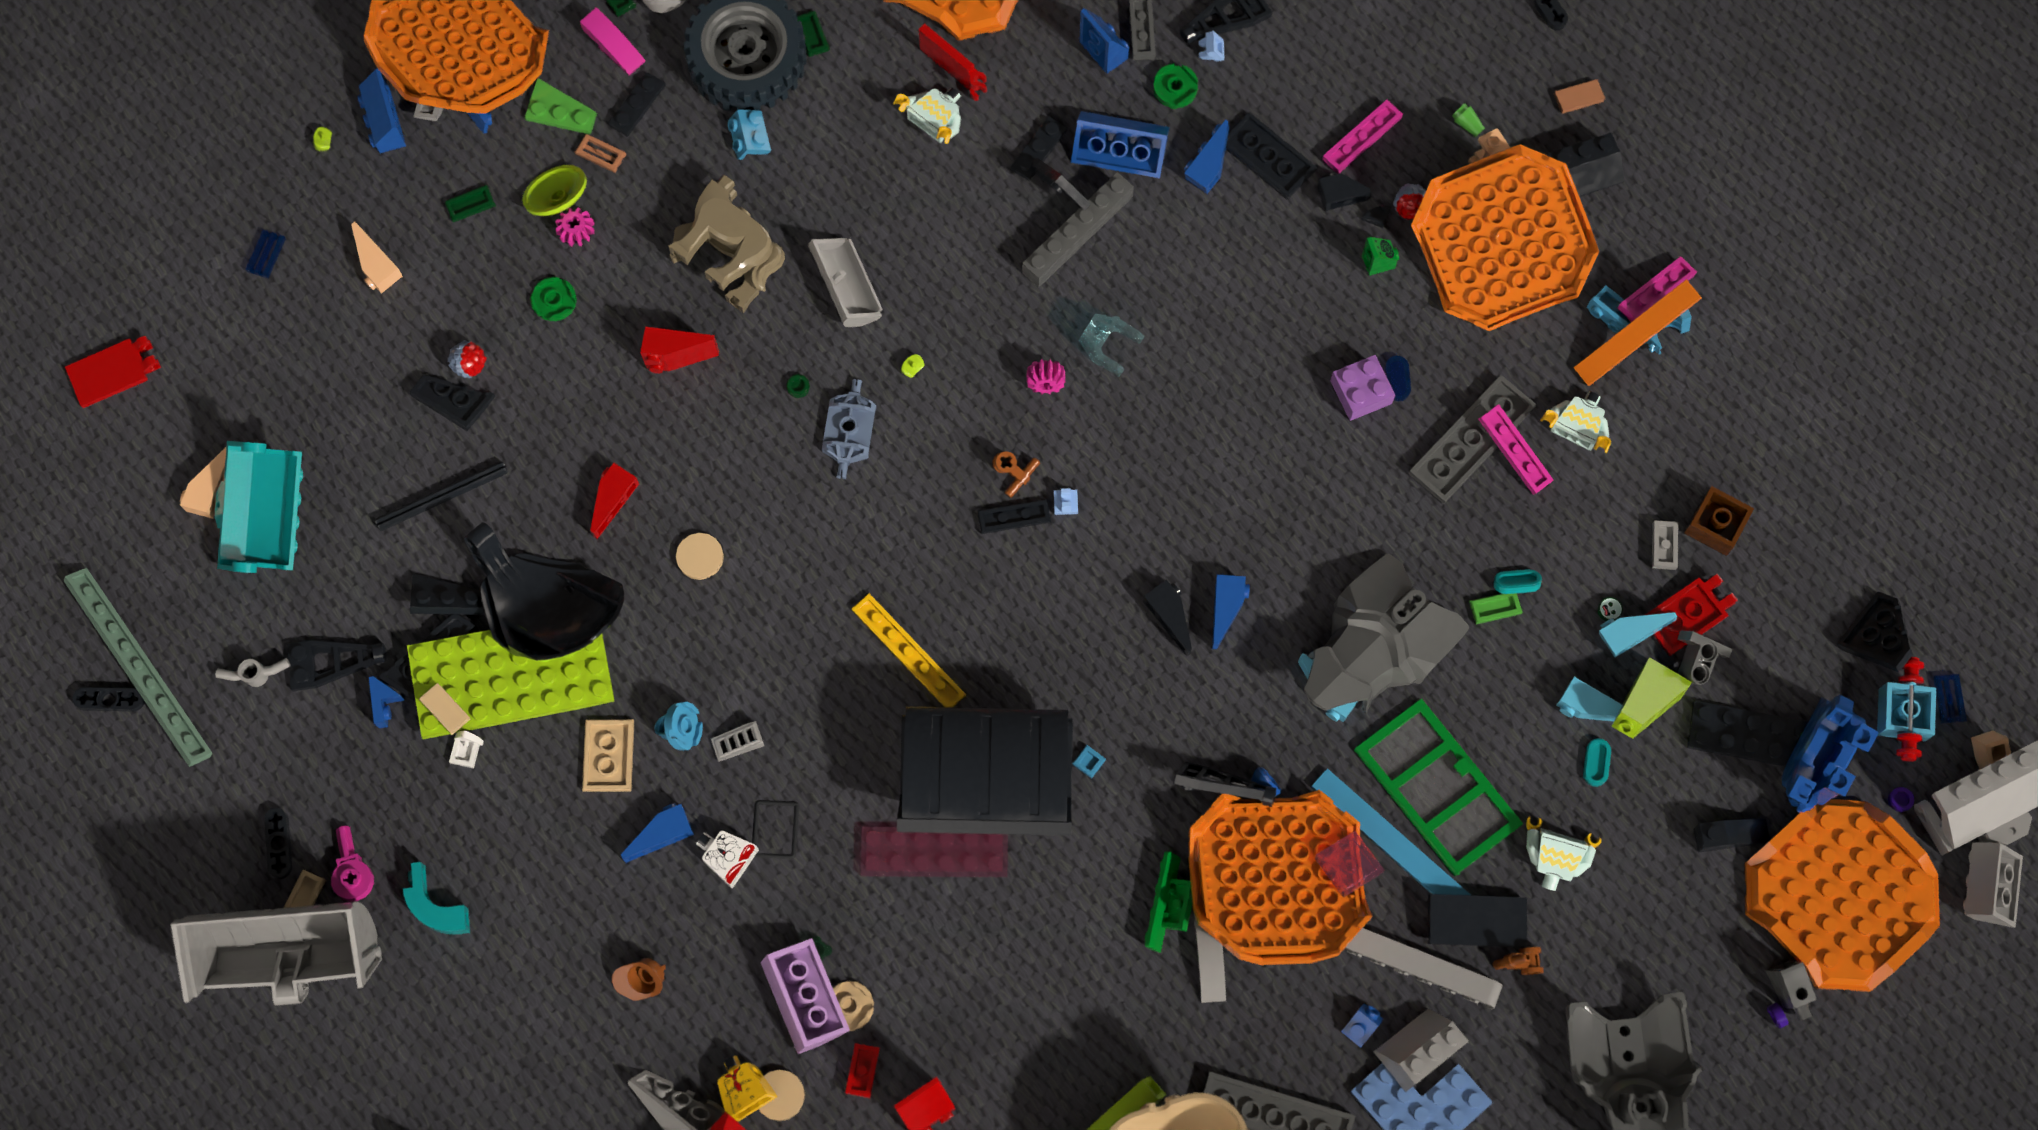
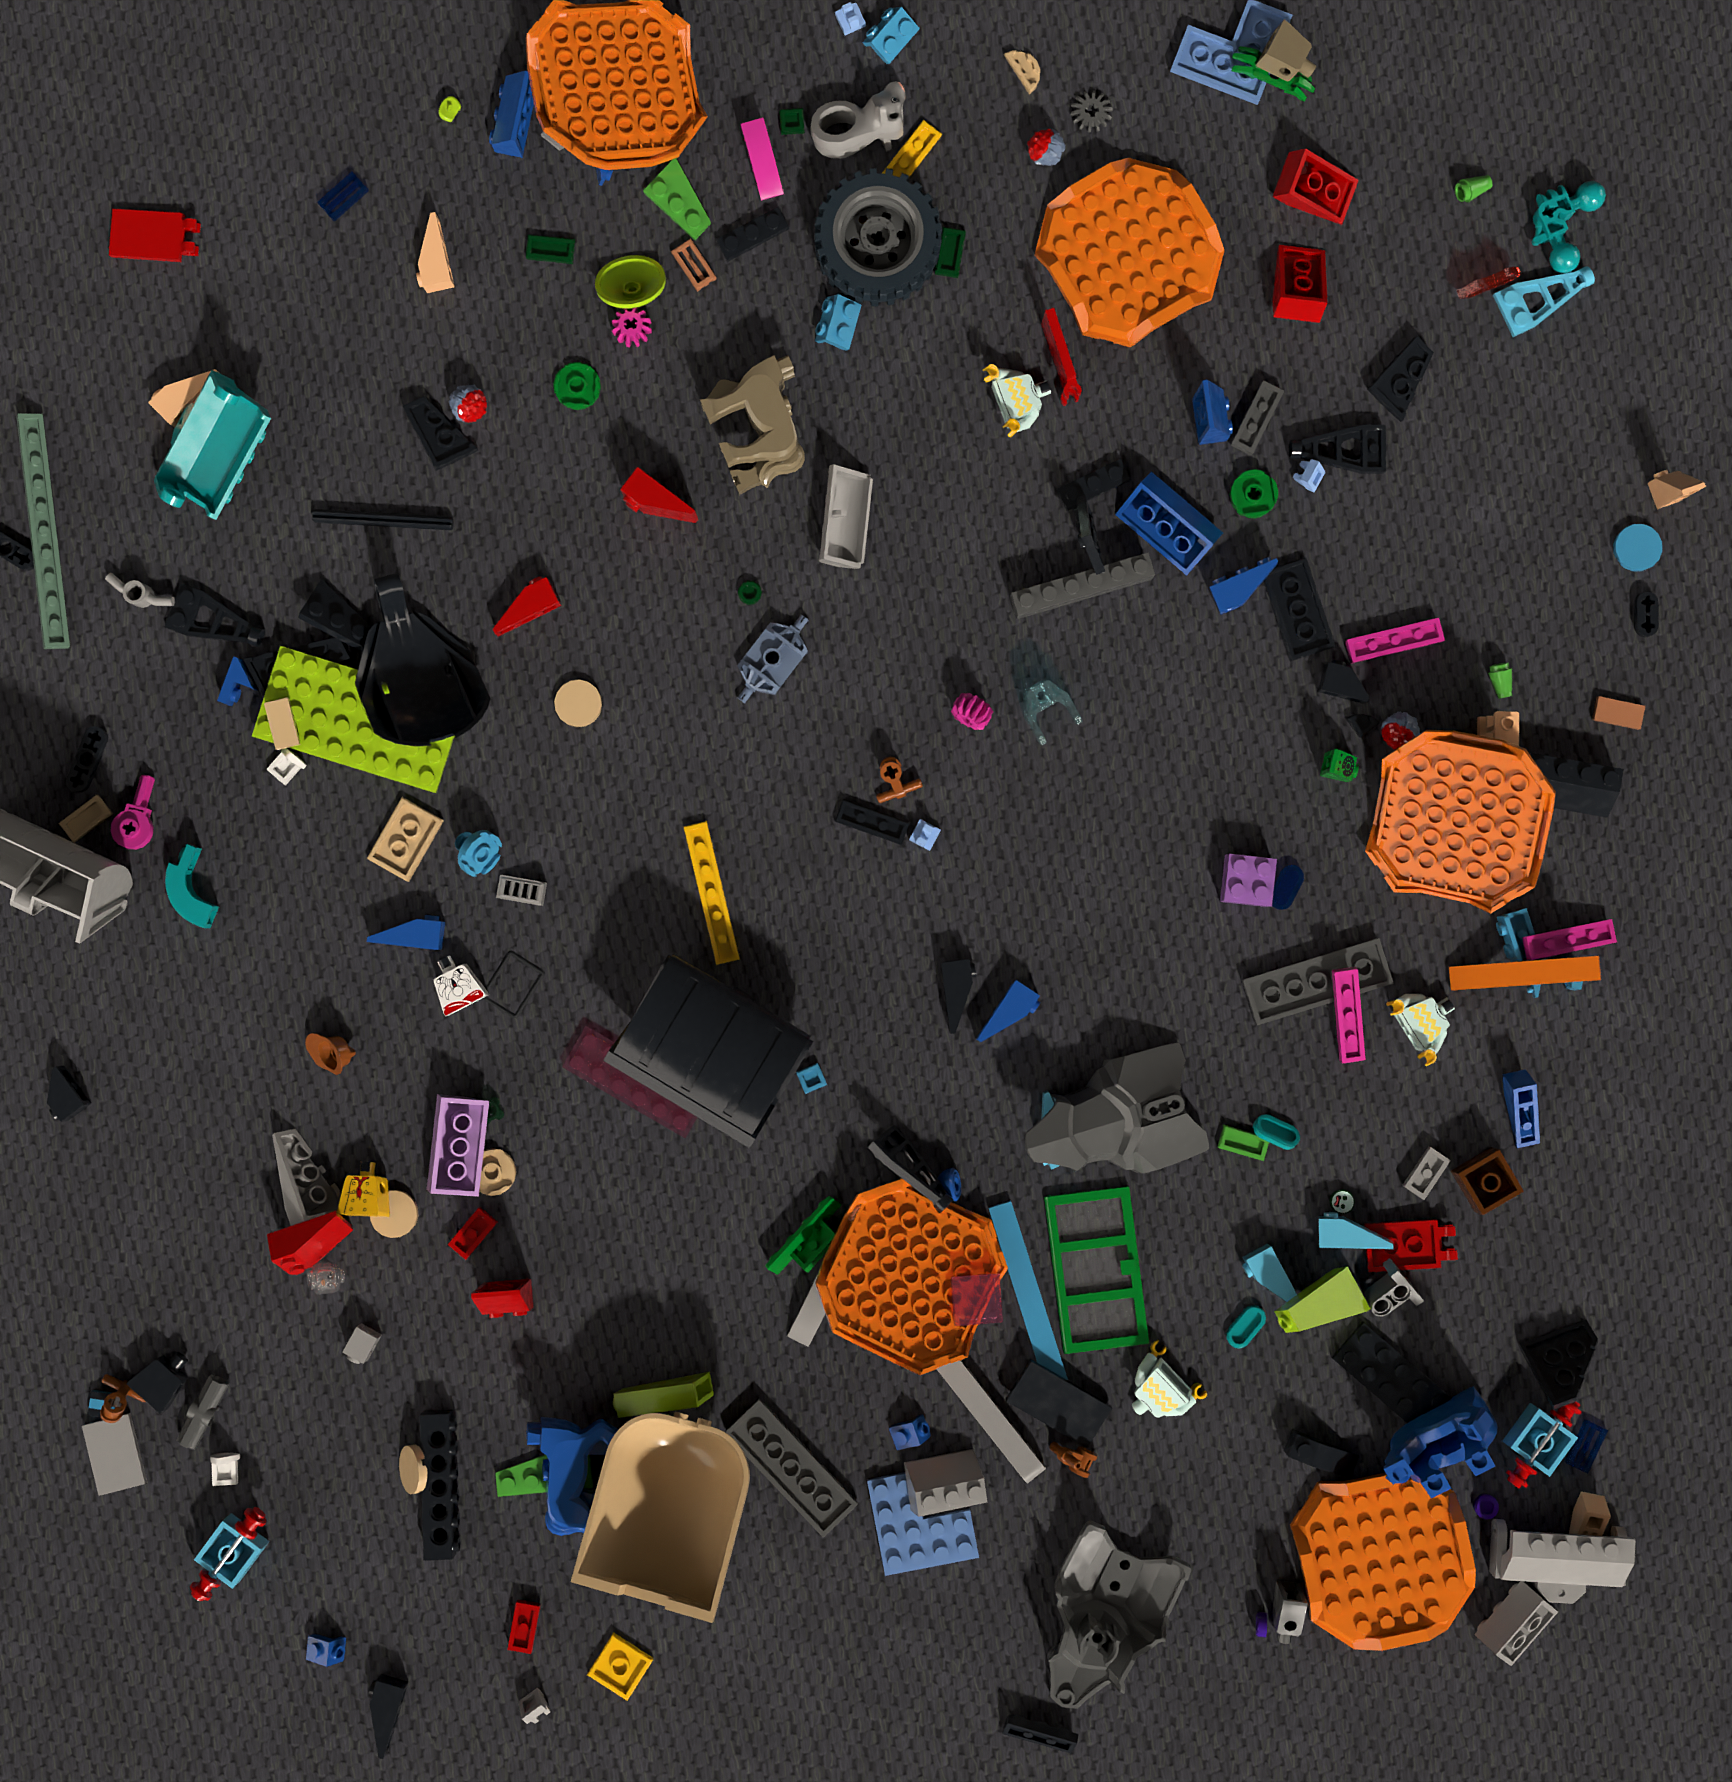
camera: 30 degrees right, 15 degrees up
(912, 365) = (861, 631): lime piece -> none
(1707, 444) = (1522, 1107): none -> blue slope

